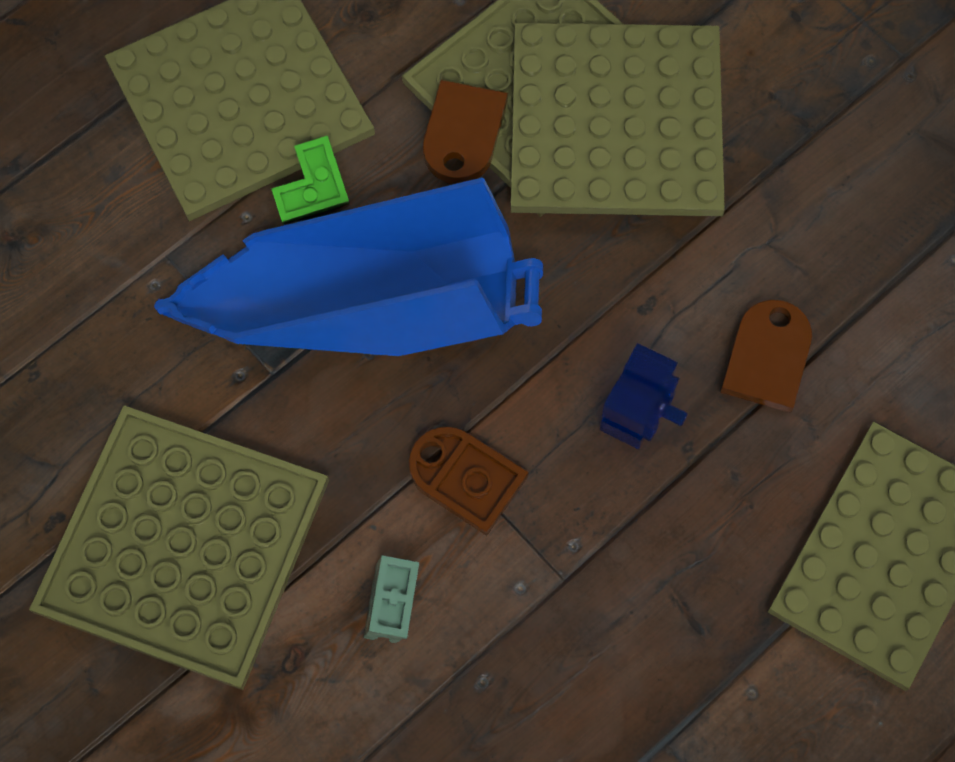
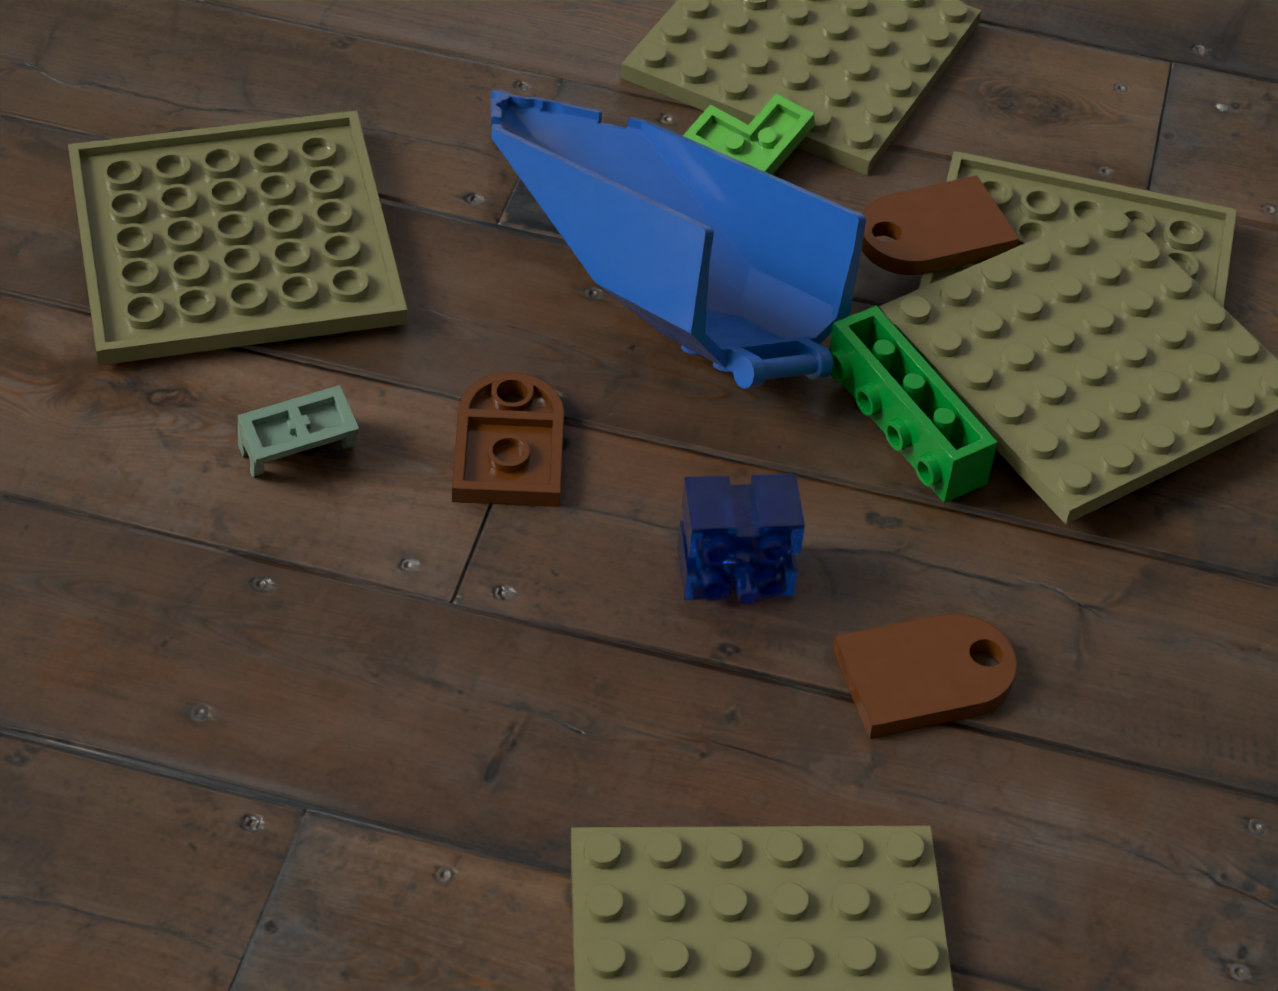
camera: 50 degrees right, 20 degrees down
(591, 238) = (911, 404): none -> green brick

